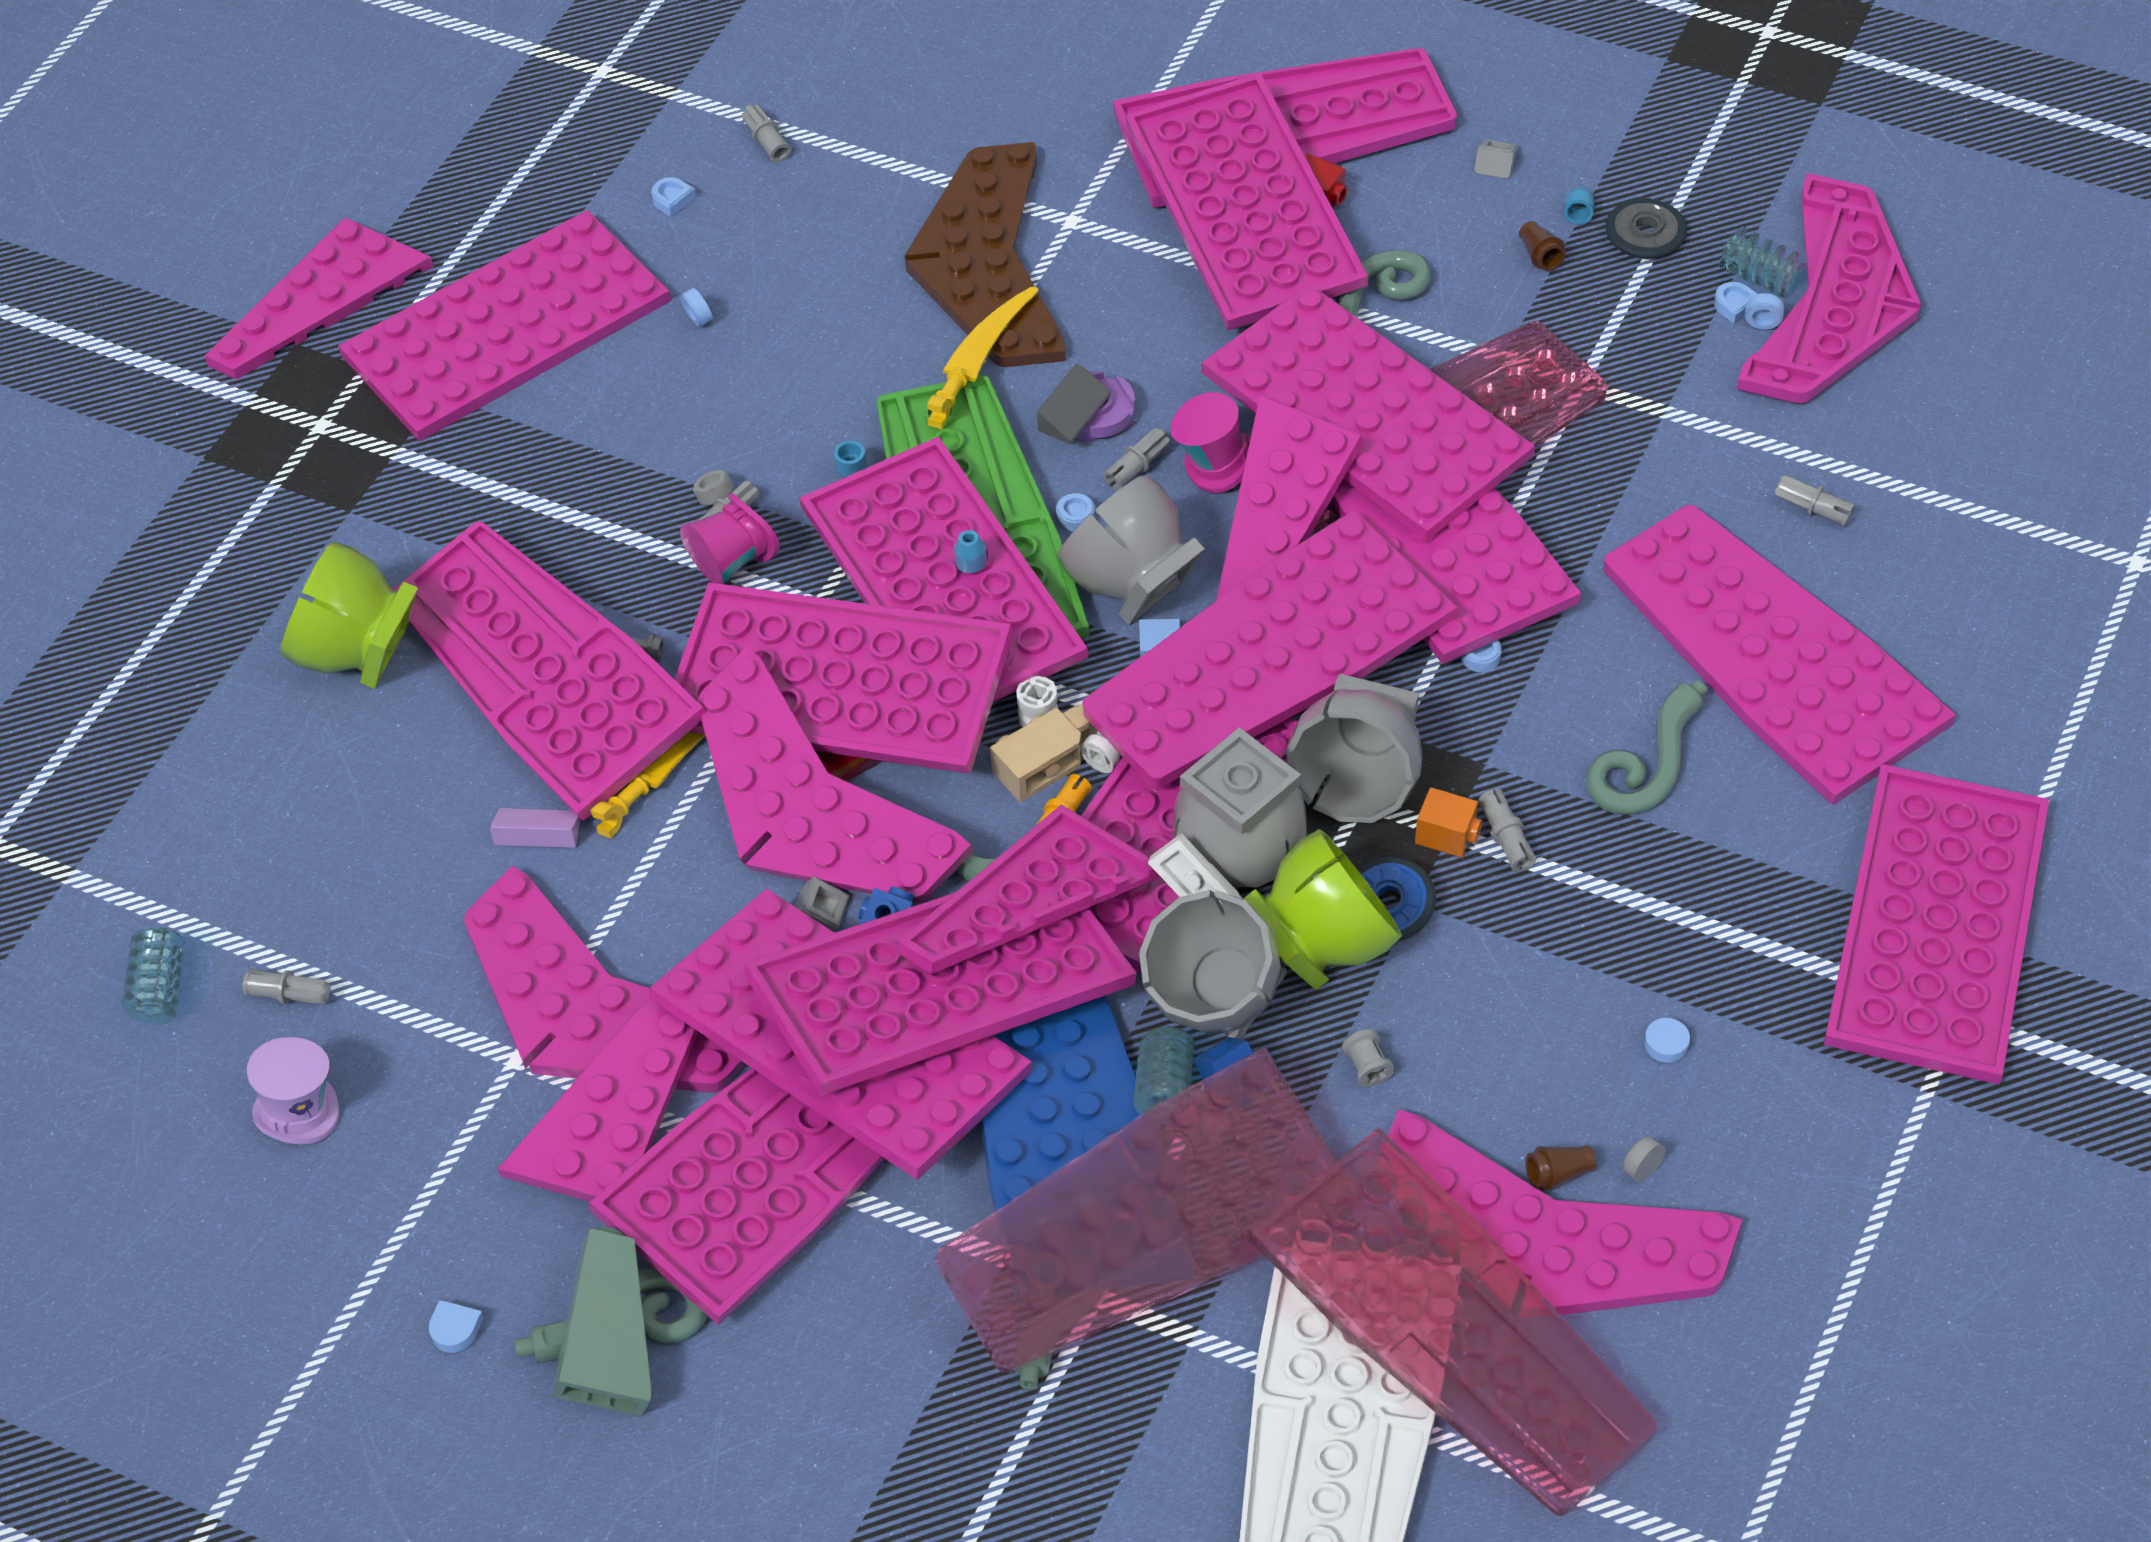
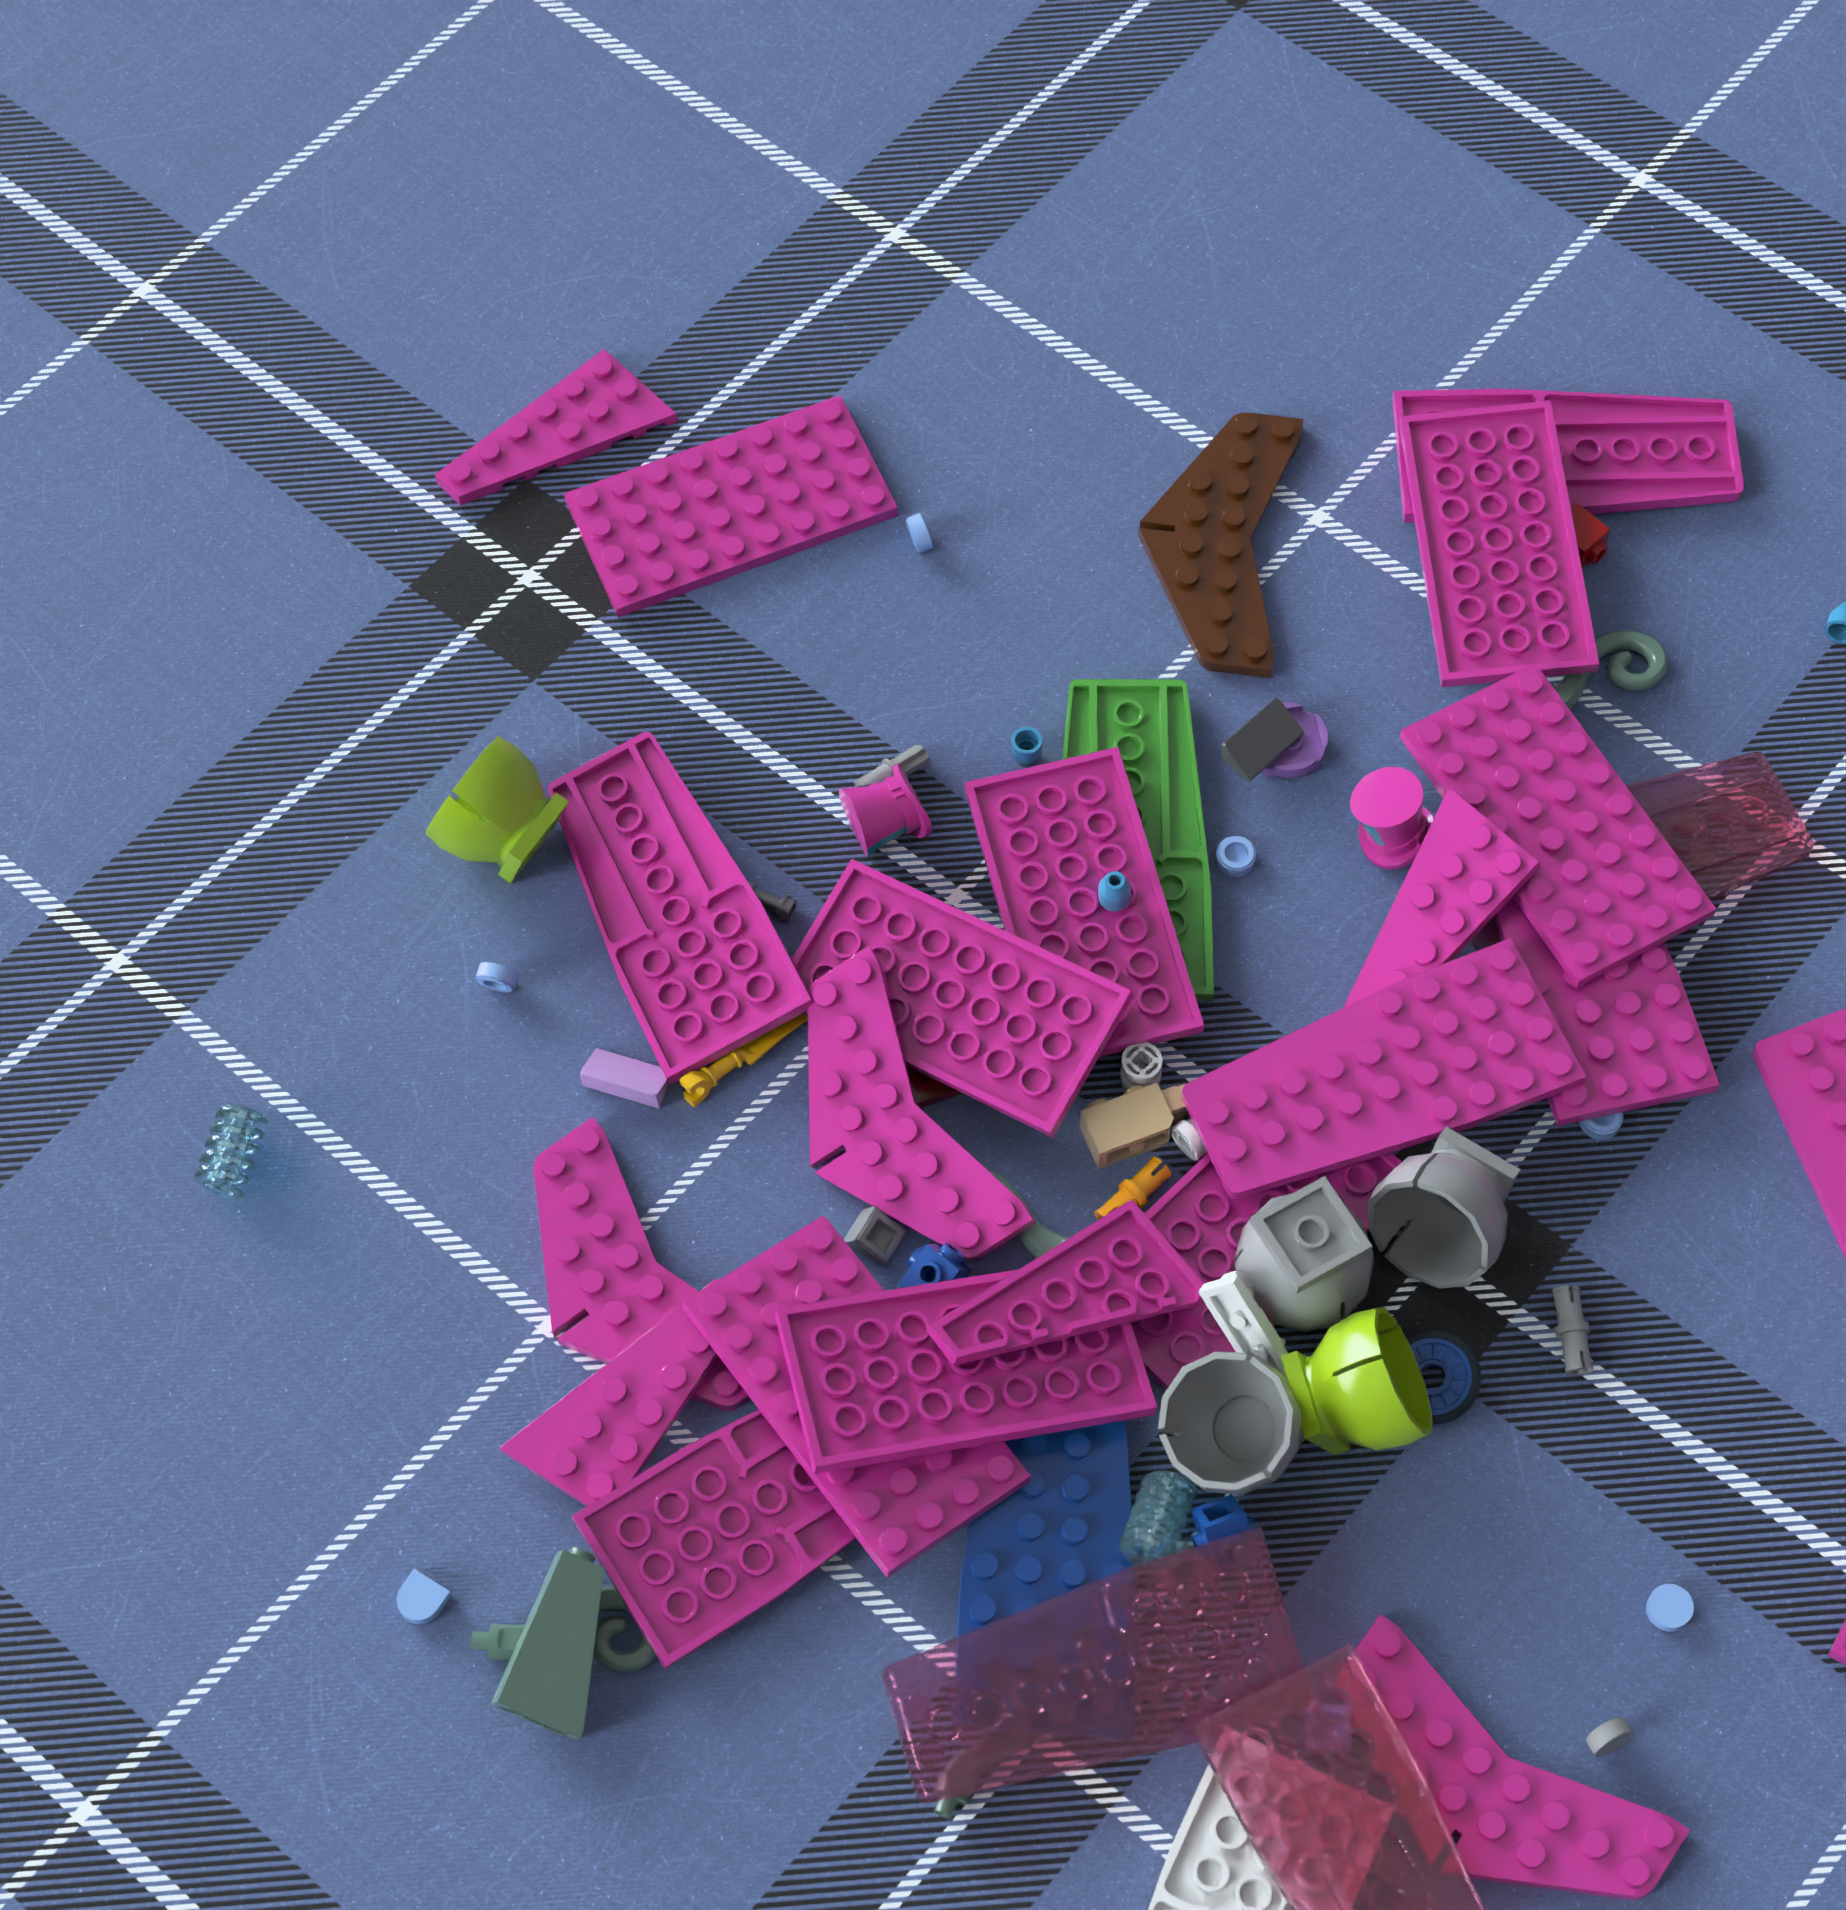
camera: 15 degrees right, 10 degrees up
(285, 987) = (350, 1193): light grey axle -> none
(292, 1091) = (328, 1314): lavender hat -> none
(383, 766) = (496, 977): none -> light blue tile
(672, 195) = (928, 395): light blue tile -> none
(713, 486) = (886, 742): light grey tile -> none
(766, 133) = (1037, 346): light grey axle -> none
(971, 354) = (1176, 655): yellow sword -> none
(1136, 458) = (1312, 812): light grey axle -> none
(1137, 553) = (1277, 926): light grey plate -> none
(1154, 631) = (1280, 1019): light blue tile -> none
(1368, 1058) = (1364, 1549): light grey bush -> none
(1447, 822) = (1514, 1308): orange brick -> none
(1495, 158) = (1771, 545): light grey slope -> none
(1543, 248) = (1791, 665): reddish brown cone -> none
(1556, 1165) = (1521, 1719): reddish brown cone -> none
(1672, 716) = (1777, 1243): sand green plant -> none

